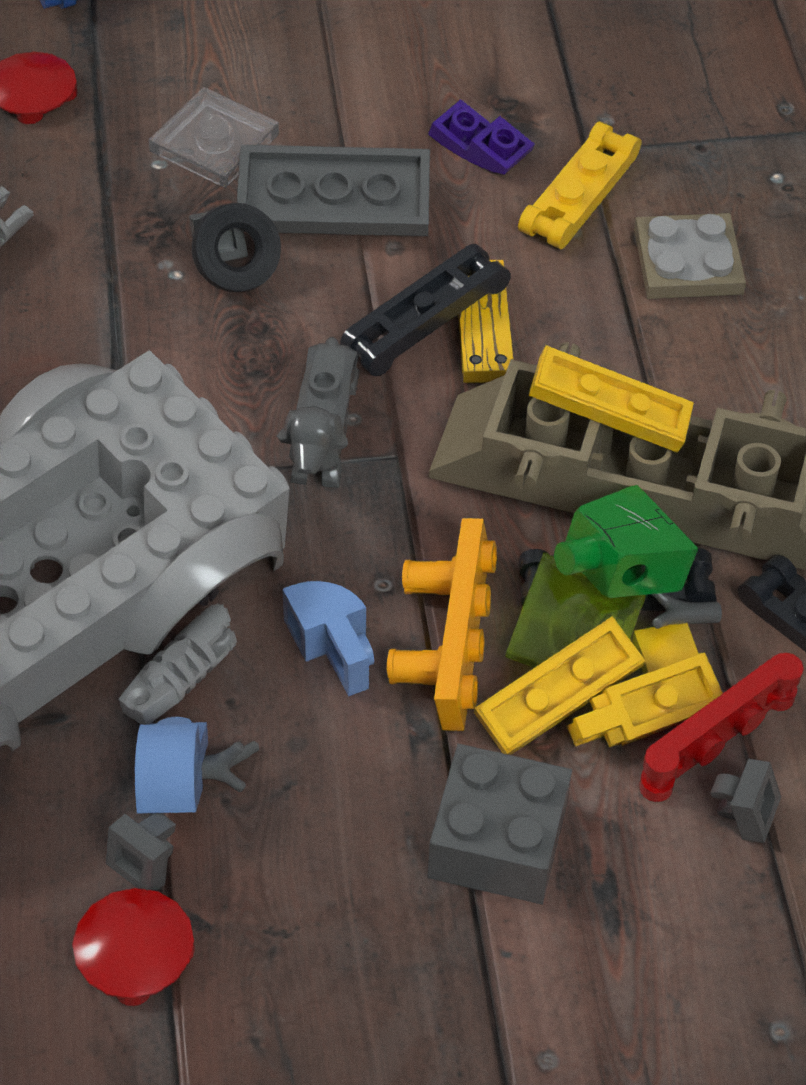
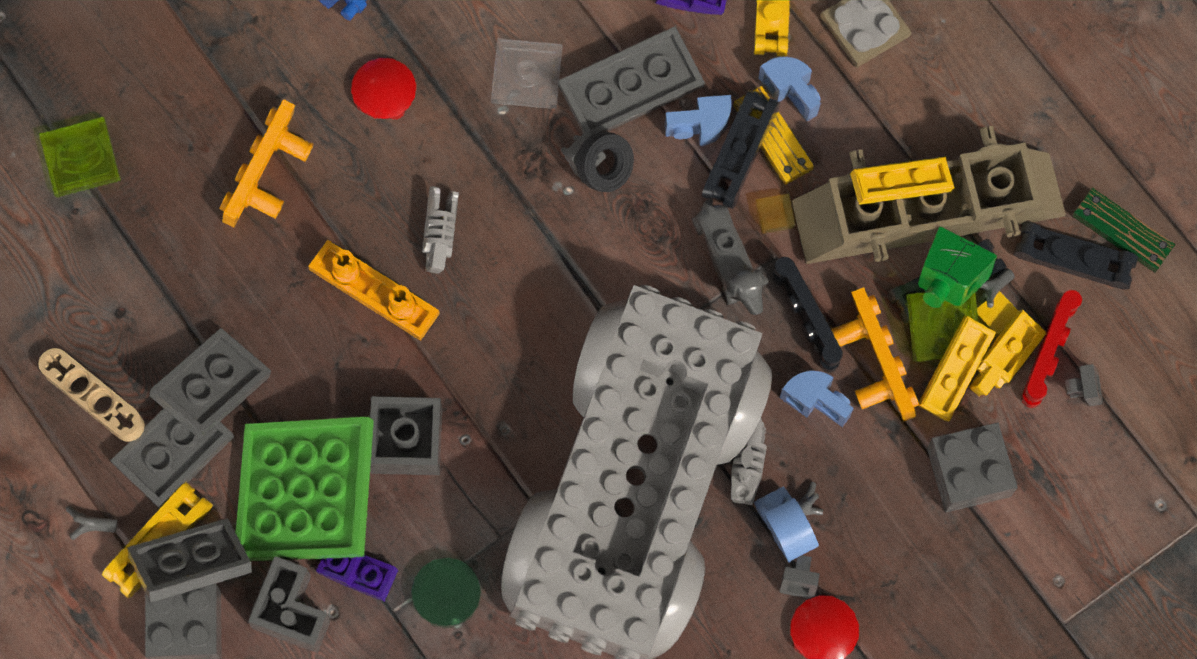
camera: 30 degrees left, 20 degrees up
(386, 548) = (814, 324): none -> black plate
(390, 259) = (708, 120): none -> medium blue brick
(426, 405) = (775, 213): none -> clear yellow tile
(542, 265) = (789, 78): none -> medium blue brick

